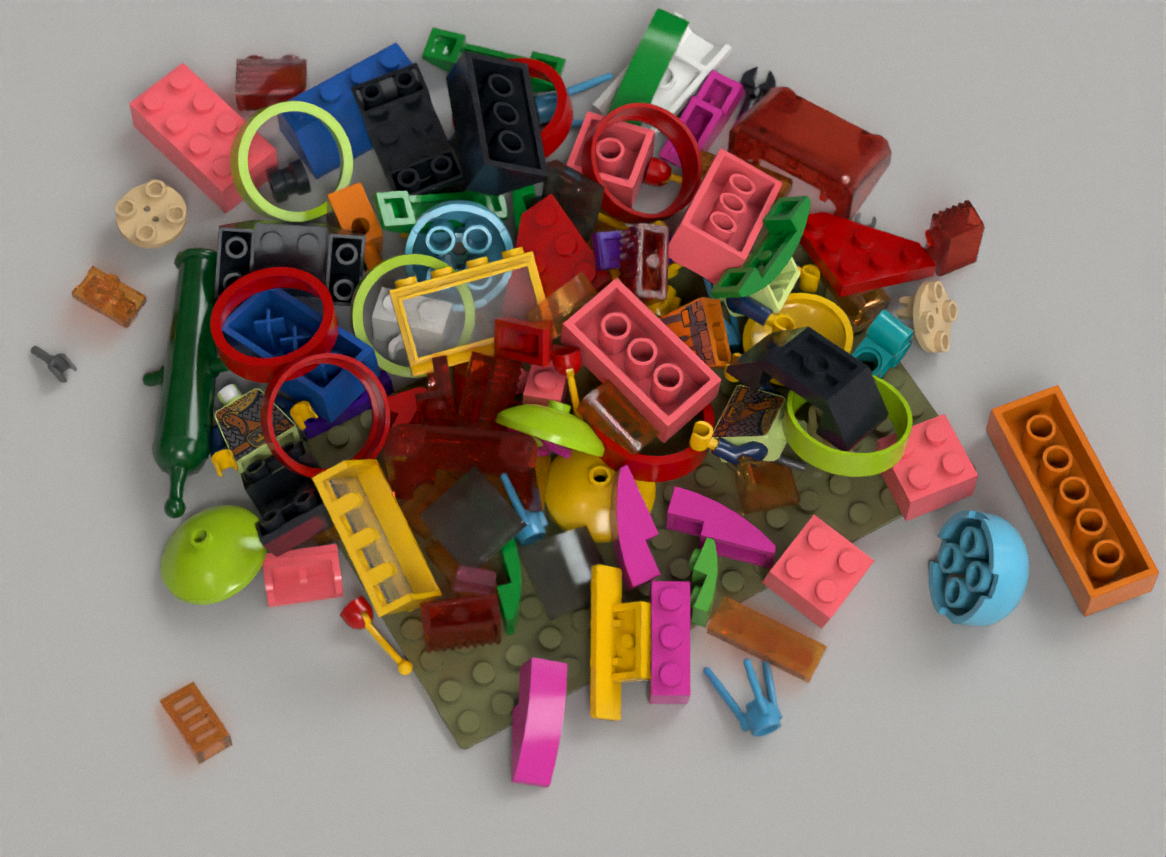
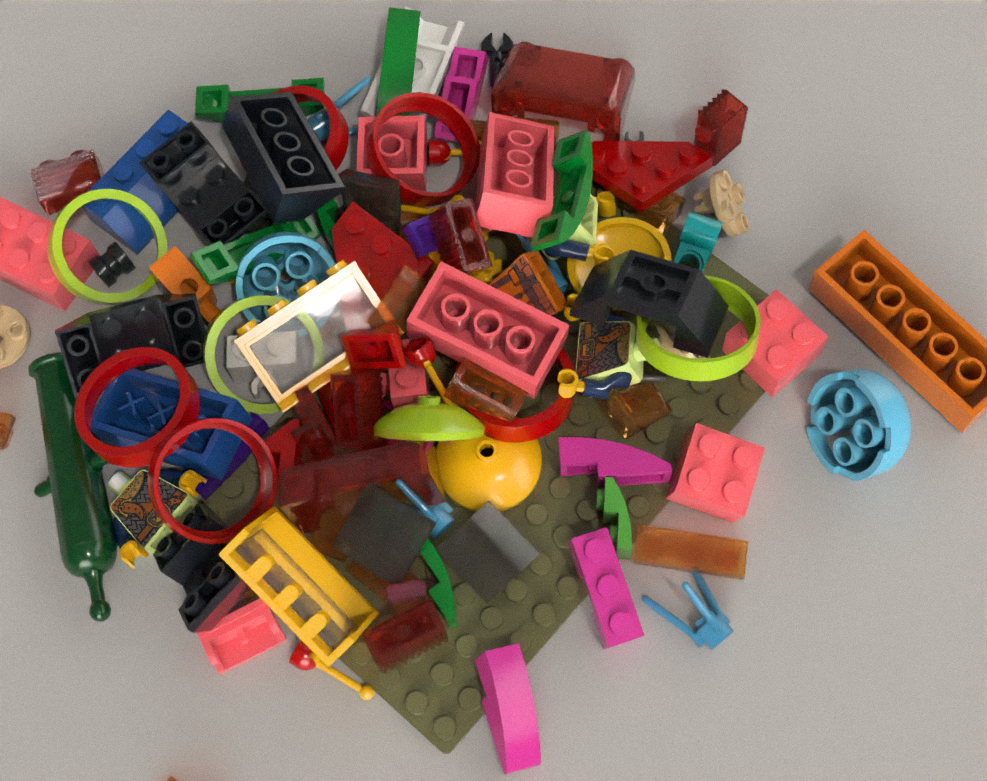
camera: 10 degrees left, 5 degrees up
(212, 555) = (149, 646): lime dish -> none
(617, 642) = (558, 604): yellow bracket -> none
(631, 530) = (533, 494): dark pink slope -> none

